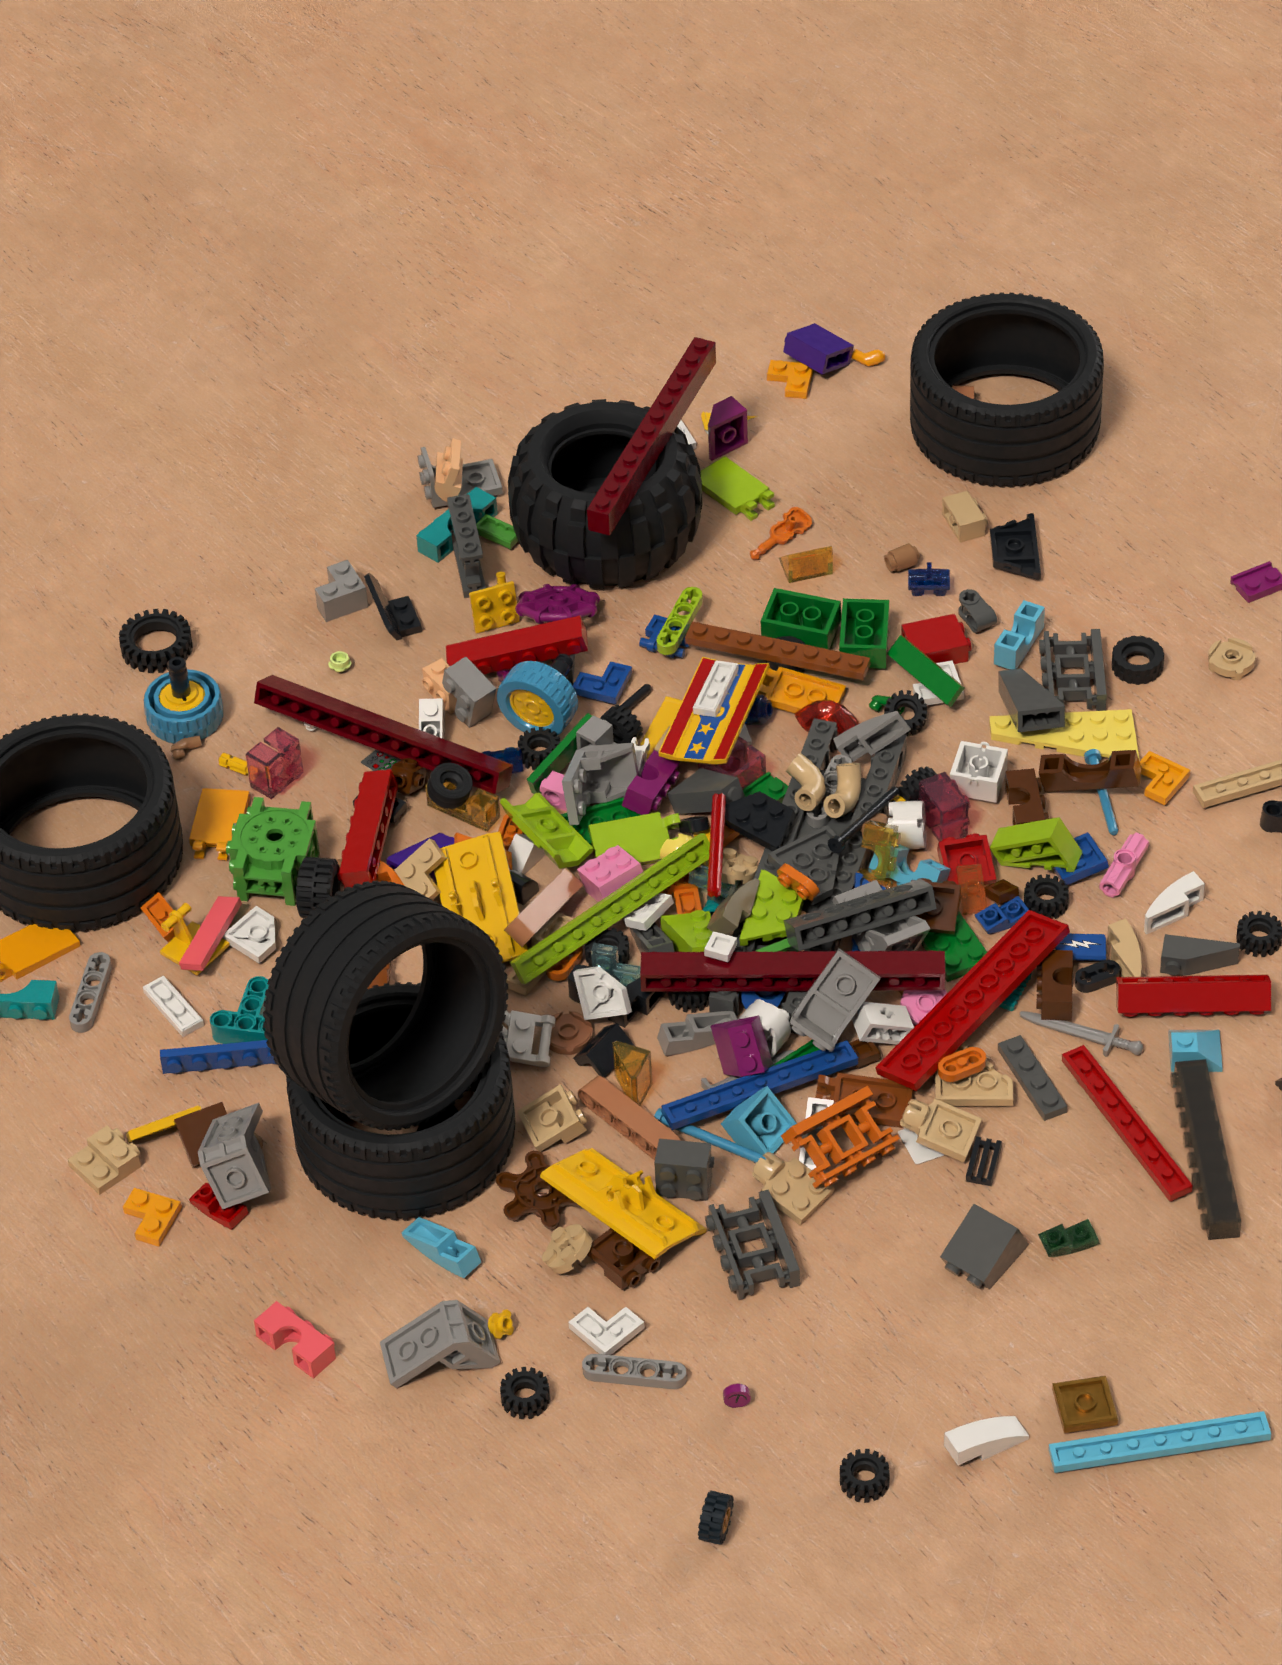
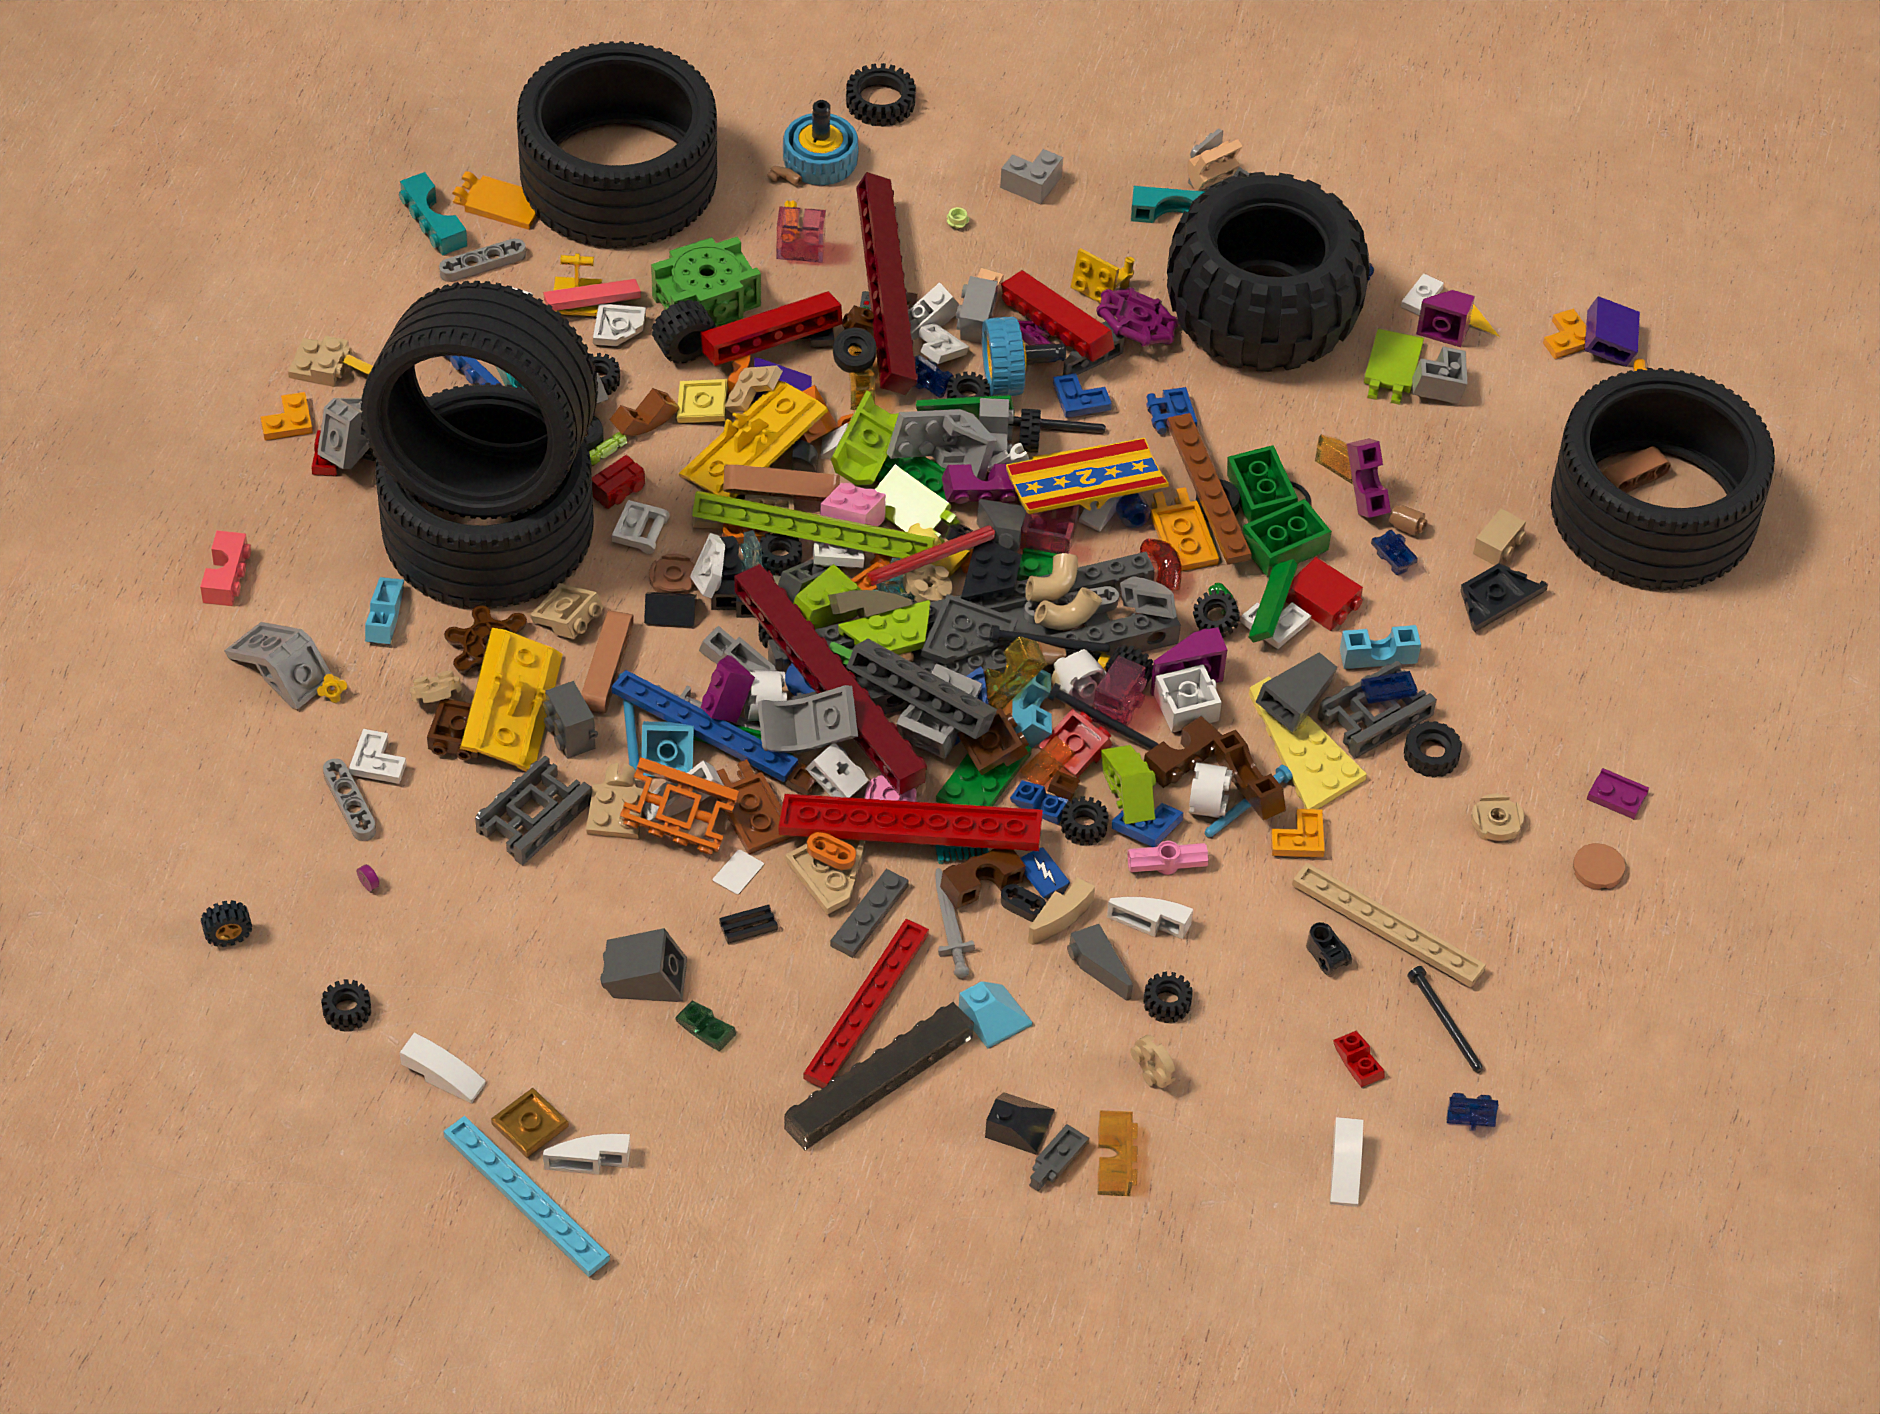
camera: 50 degrees right, 5 degrees up
(157, 911) = (595, 248): orange plate -> none
(215, 818) = (734, 225): light orange tile -> none
(396, 614) = (1034, 219): black plate -> none
(466, 544) = (1135, 234): dark grey fence -> none
(480, 736) = (940, 344): none -> white plate
(521, 1034) = (636, 544): white plate -> none
(522, 1380) = (271, 728): black tyre -> none
(632, 1070) = (645, 636): clear yellow slope -> none
(651, 436) = (1312, 248): dark red brick -> none
(683, 621) = (1187, 402): lime beam -> none
(715, 688) = (1111, 464): white tile -> none
(720, 946) = (800, 610): white plate -> none
(780, 461) = (1442, 378): none -> light grey brick
(794, 522) = (1388, 426): orange piece -> none
(797, 881) = (923, 627): orange plate -> none
(864, 564) = (1370, 495): none -> magenta arch
(917, 842) = (1099, 716): none -> black bar
(941, 1127) = (756, 874): tan plate -> none
(948, 731) = (1199, 648): none -> magenta slope
(975, 611) = (1387, 602): dark grey piece -> none
(1068, 647) = (1389, 687): none -> clear blue plate
(1083, 803) = (1208, 790): none -> white brick
(1151, 1375) = (588, 1153): none -> white slope
(1193, 994) = (1047, 979): red brick -> none

